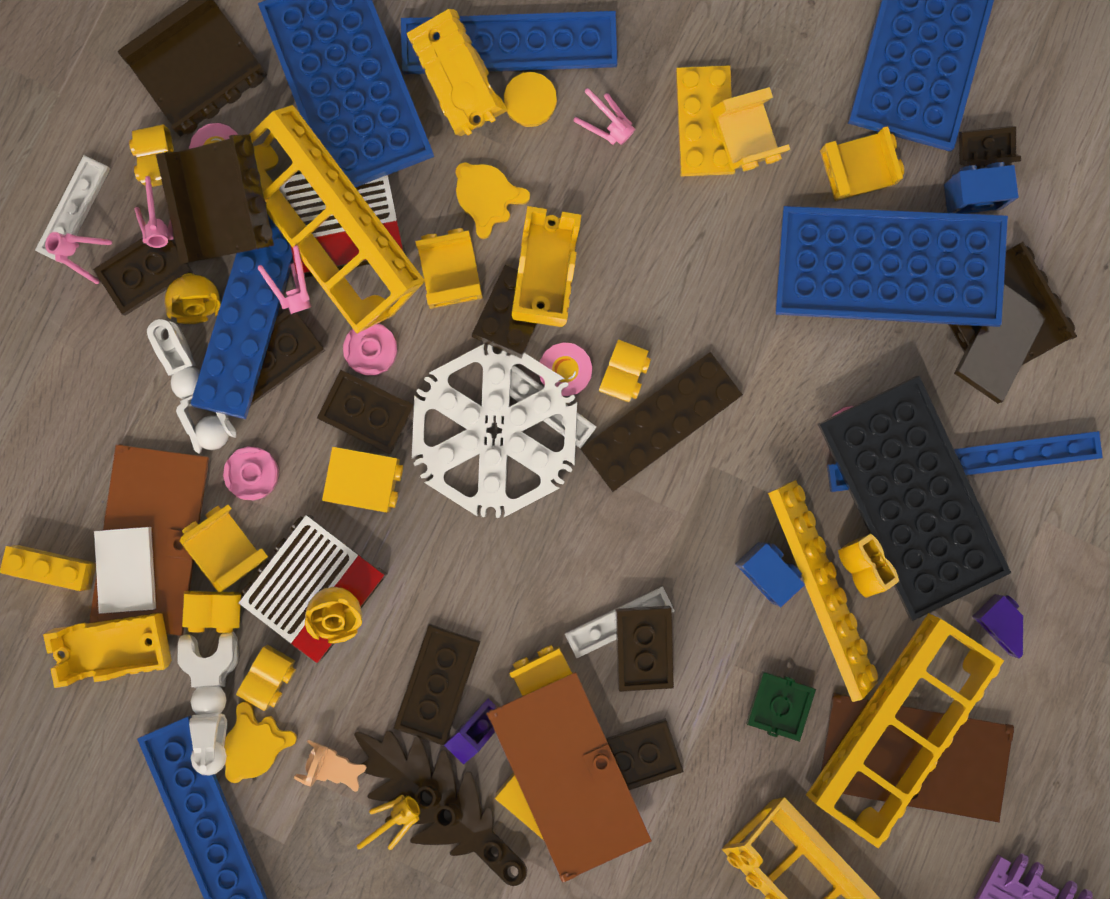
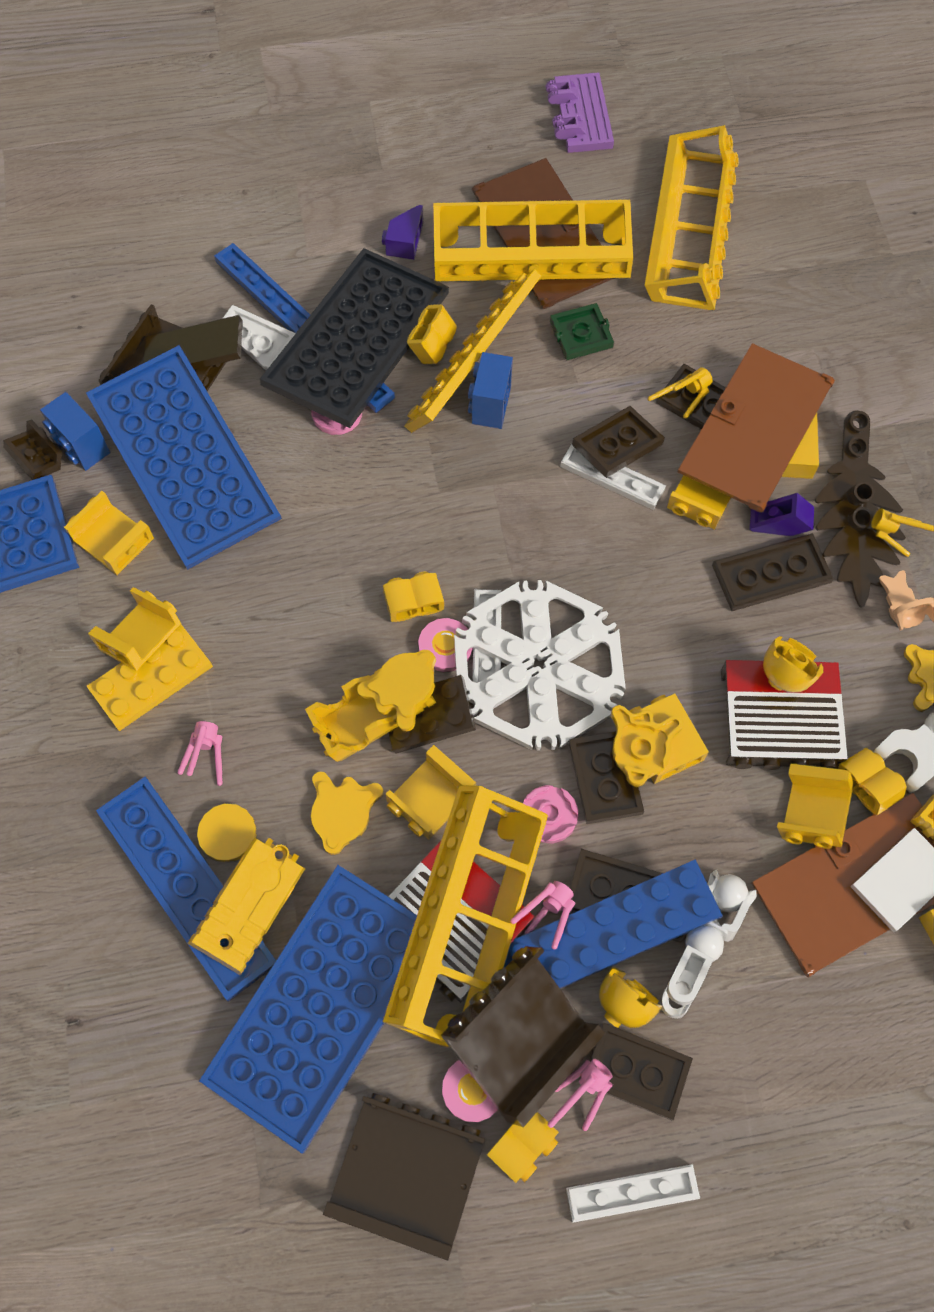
camera: 130 degrees left, 20 degrees down
(66, 245) = (676, 1154): bright pink plant -> none
(251, 473) = (734, 838): bright pink tile -> none
(266, 678) = (883, 699): yellow brick -> none
(363, 451) = (641, 744): none -> yellow tile
(539, 296) = (402, 685): none -> yellow tile
(651, 763) = (695, 383): none -> yellow plant
(661, 422) = (433, 546): dark brown plate -> none
(976, 415) = (261, 337): none -> white wing

